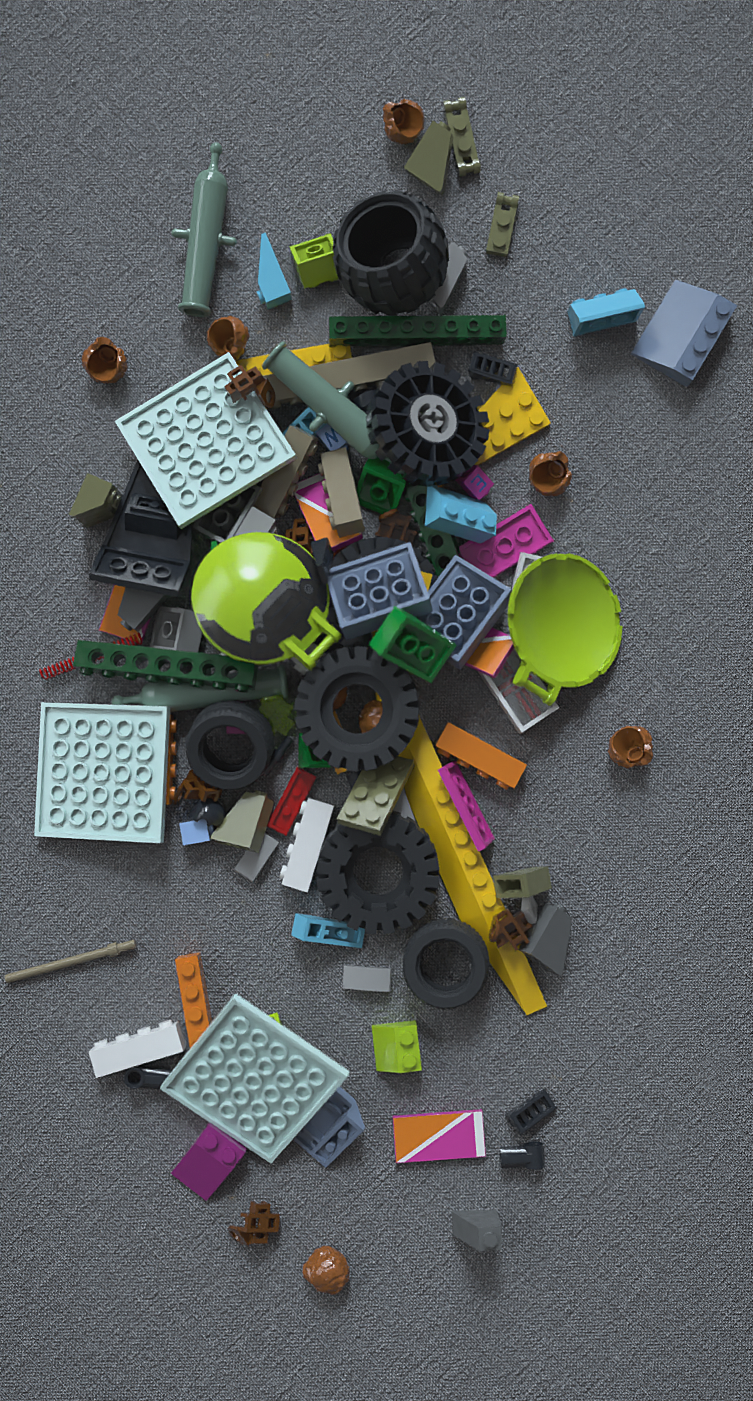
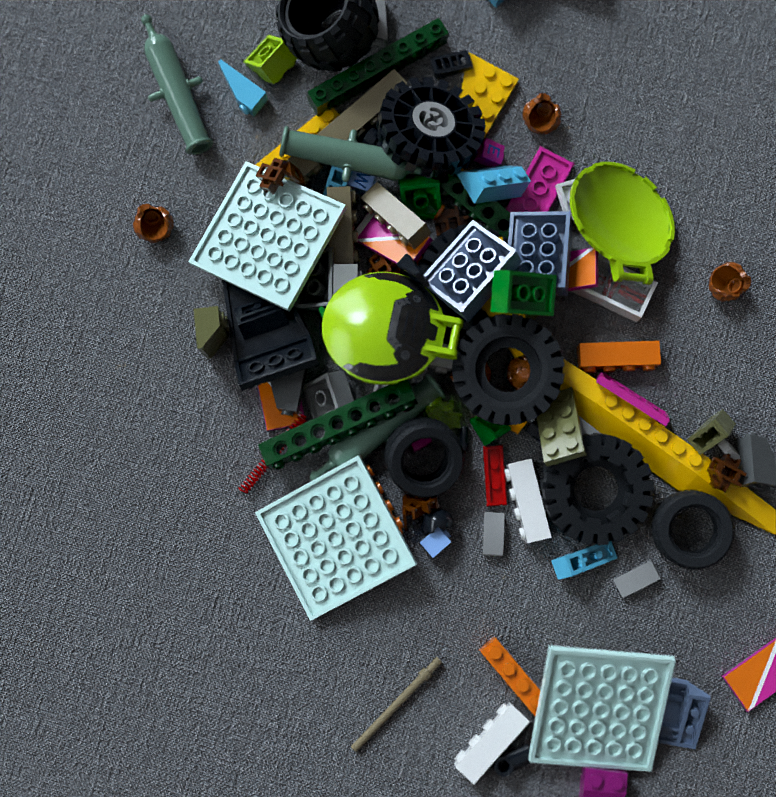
camera: 25 degrees left, 5 degrees down
(228, 335) = (236, 151): dark orange hair -> none
(245, 823) = (470, 512): slope -> none
(396, 1047) = (693, 618): lime slope -> none

